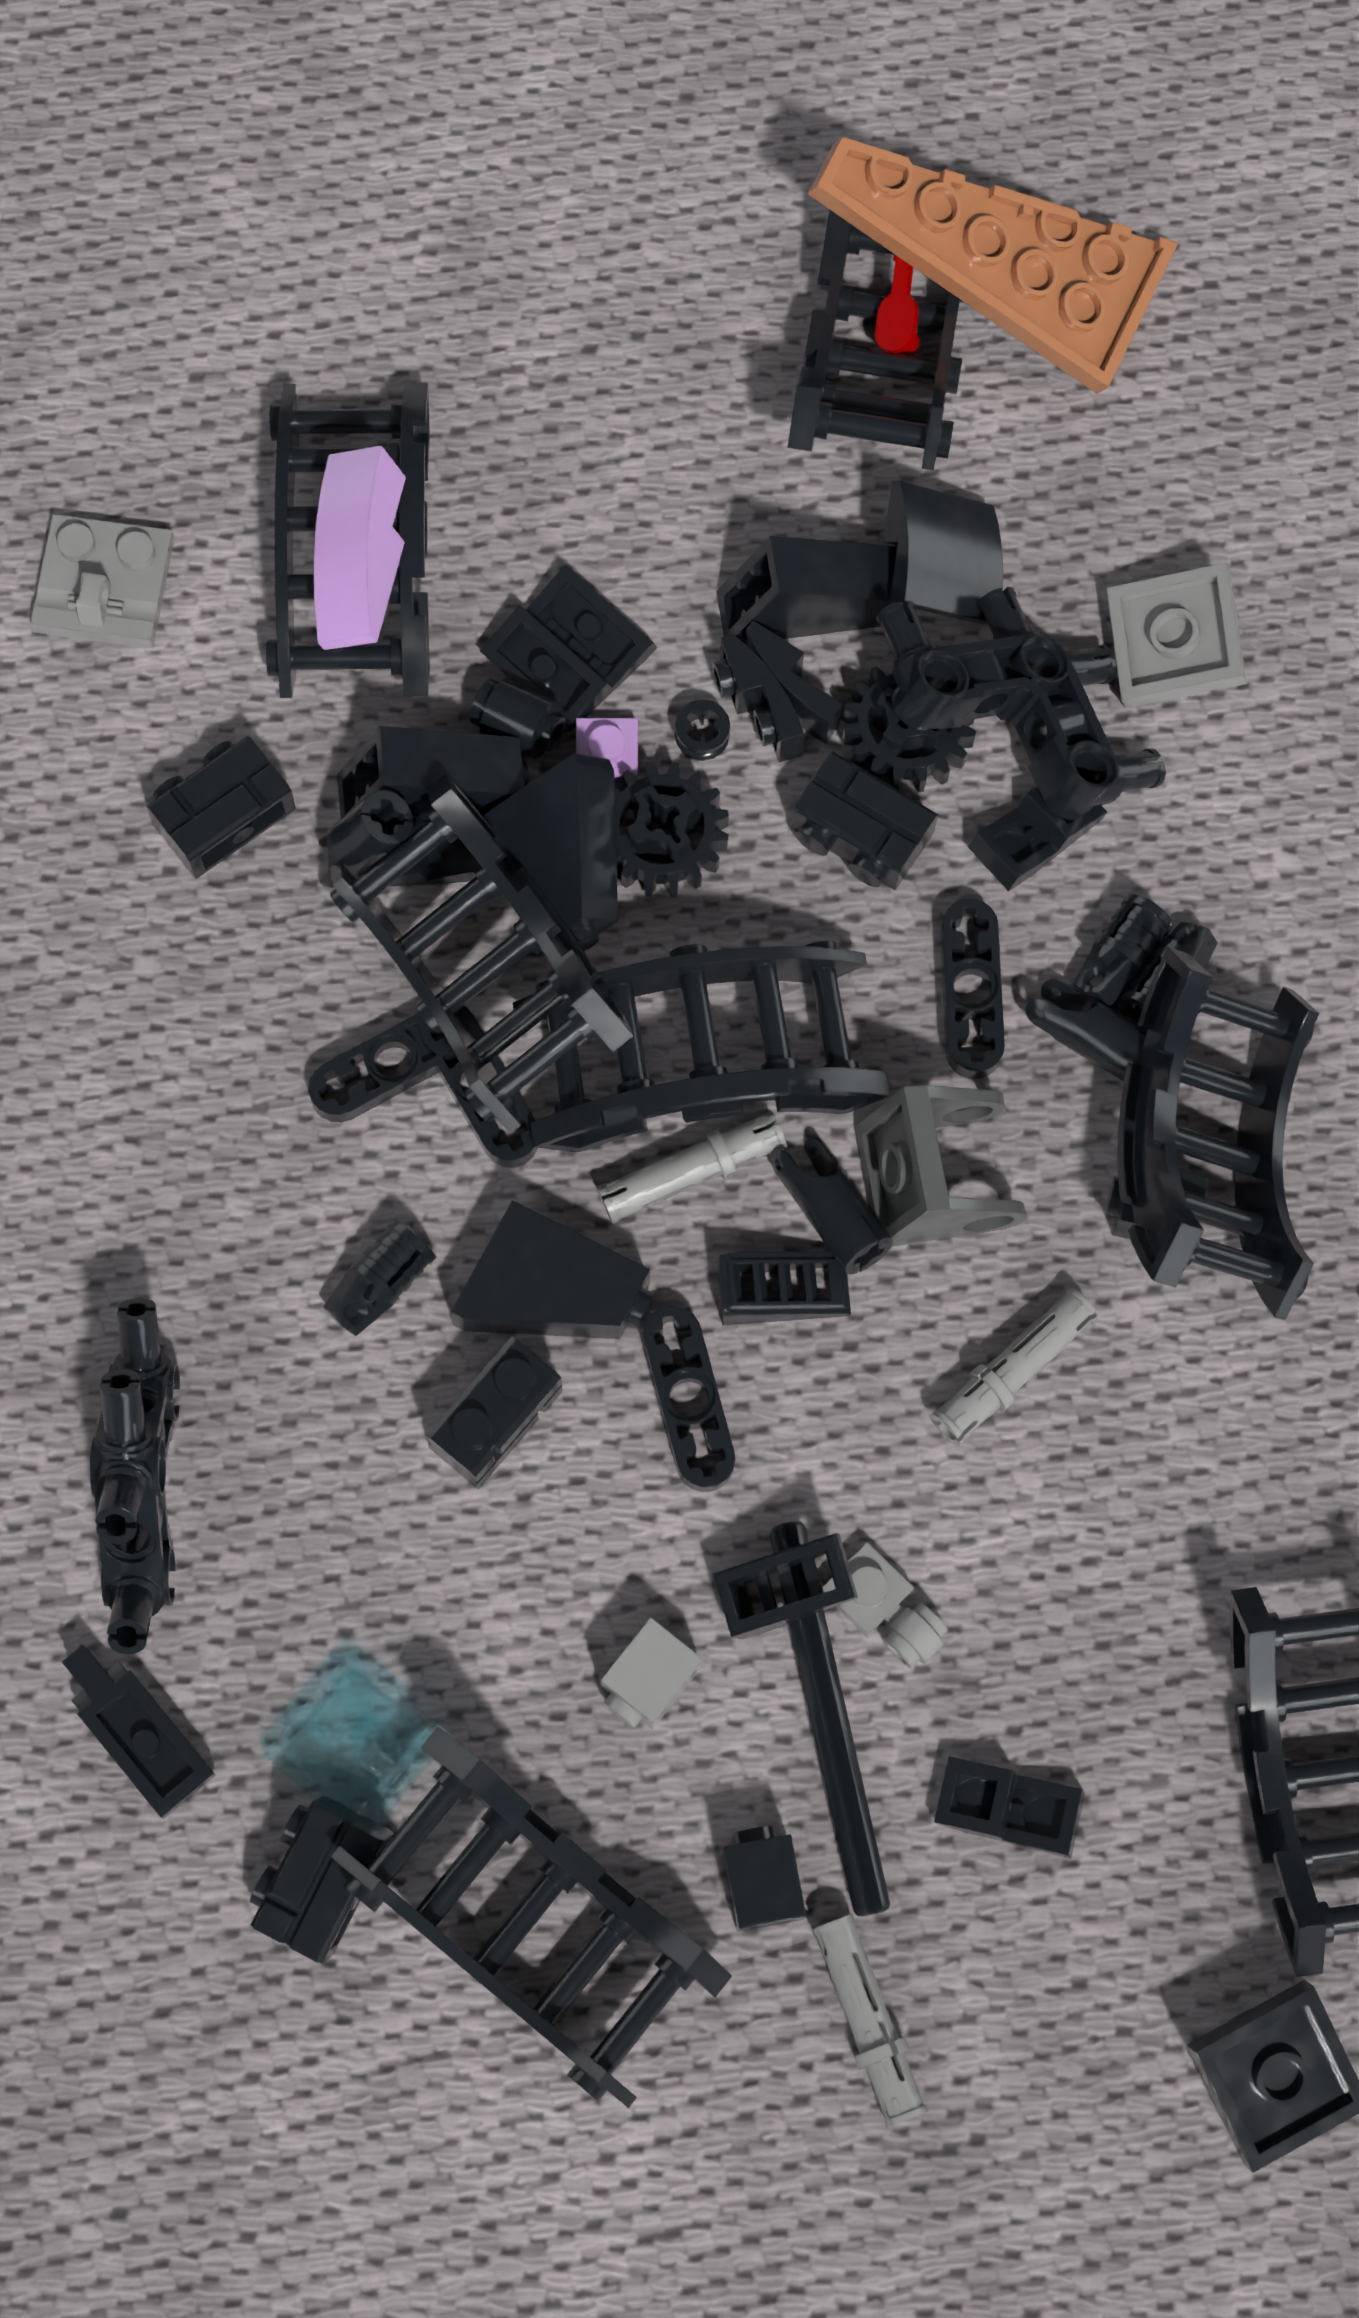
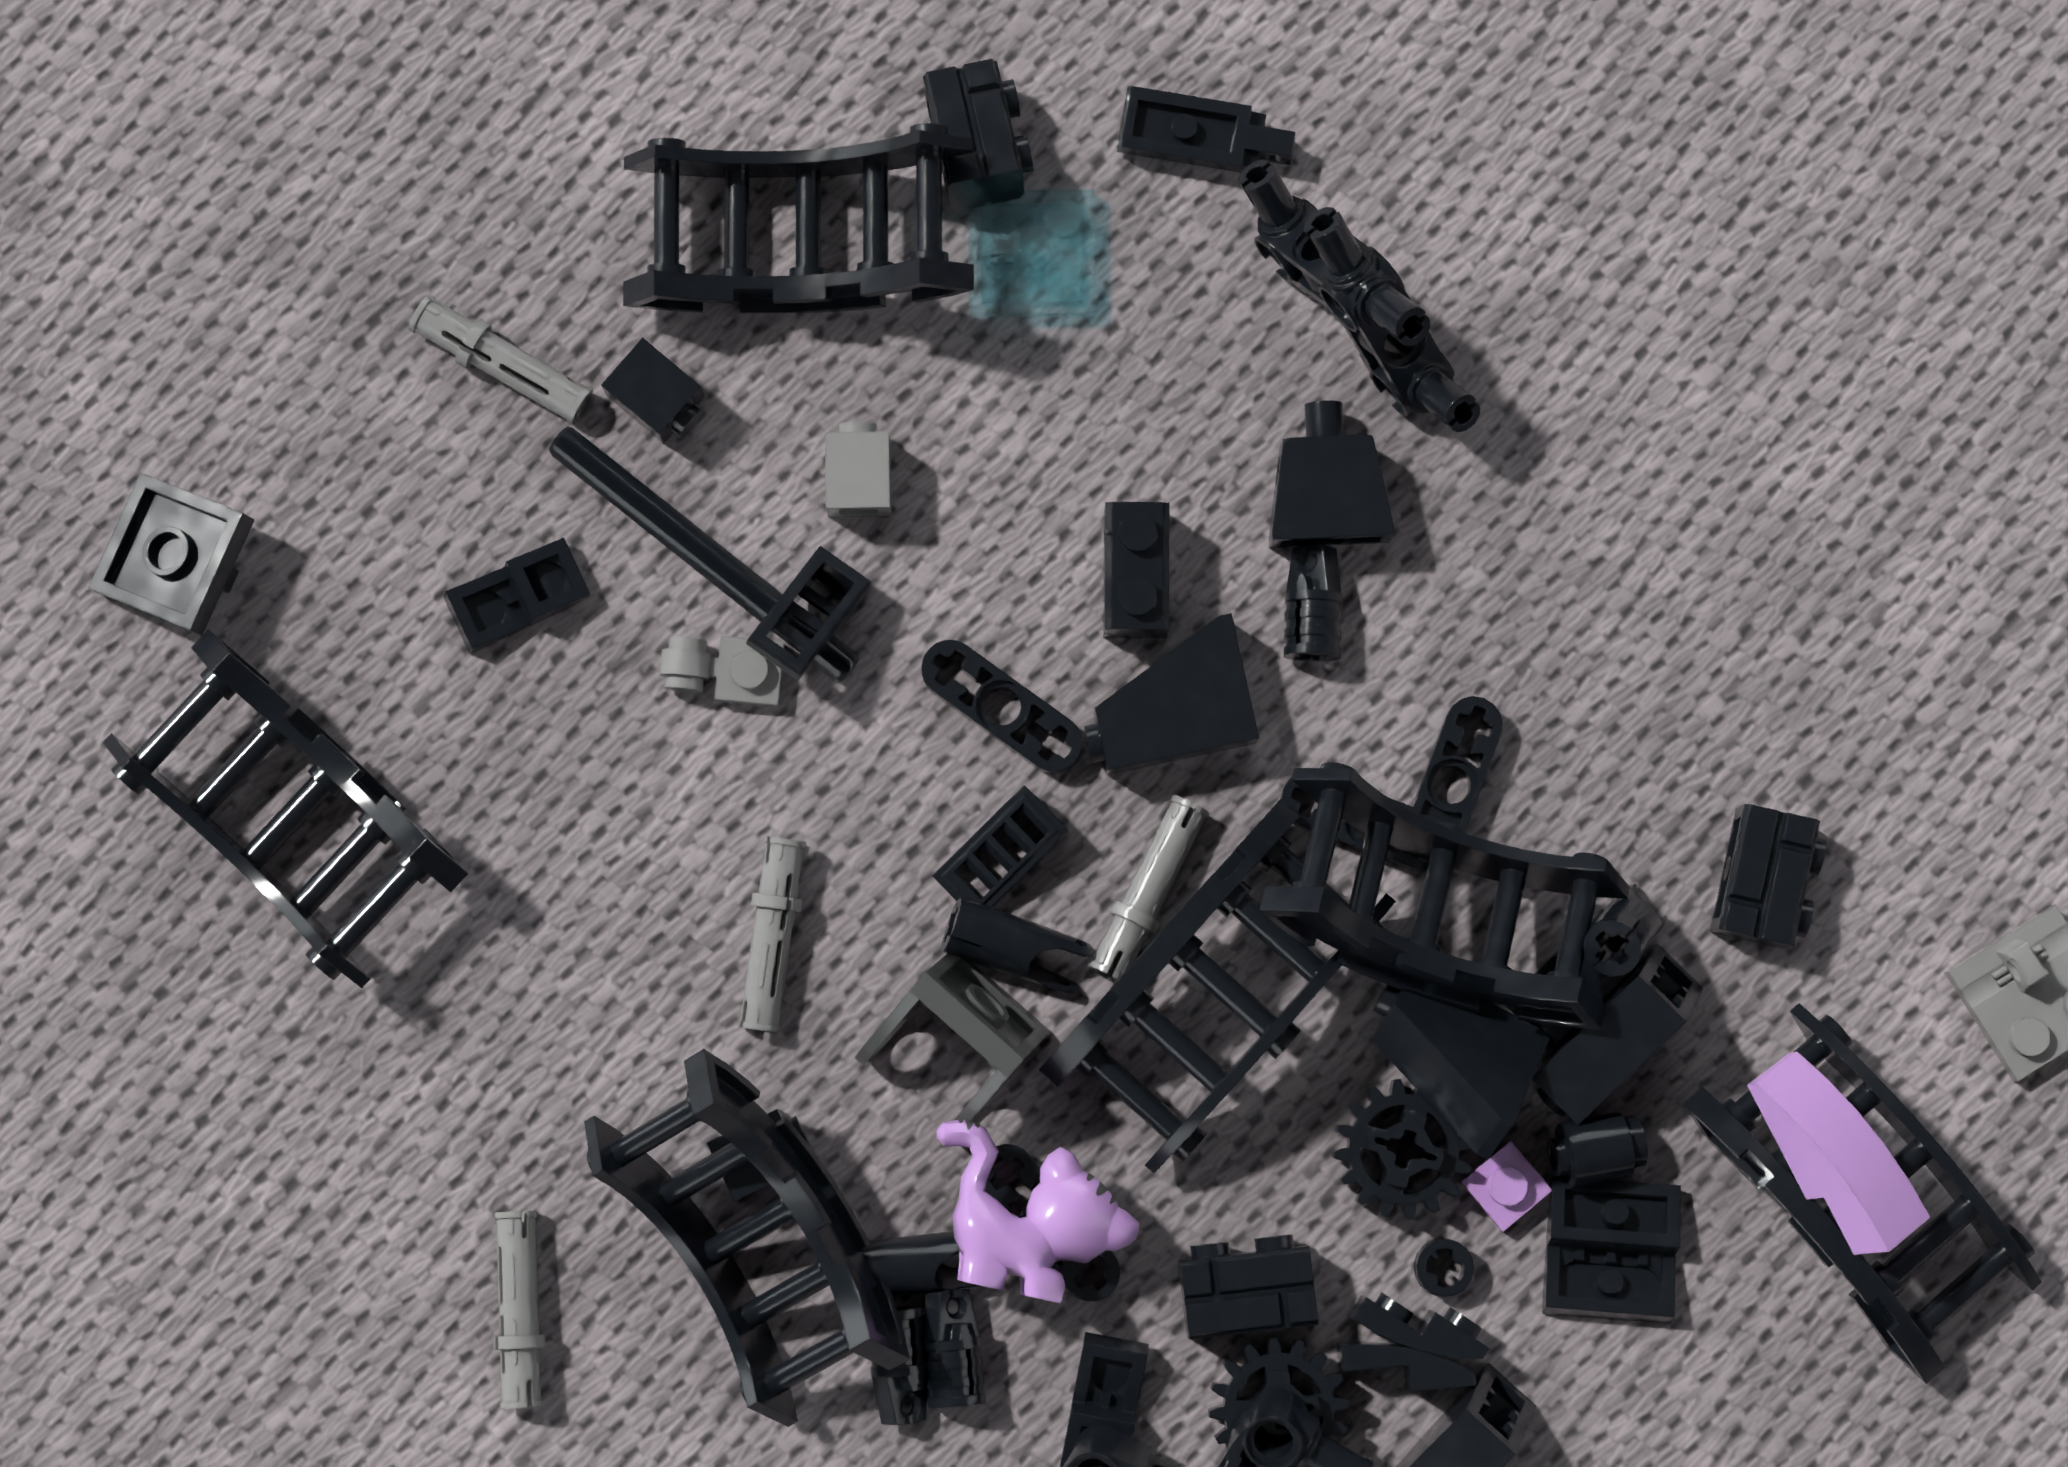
camera: 140 degrees right, 10 degrees up
(287, 1357) = (1329, 486): none -> black torso
(961, 964) = (1065, 1219): none -> lavender animal

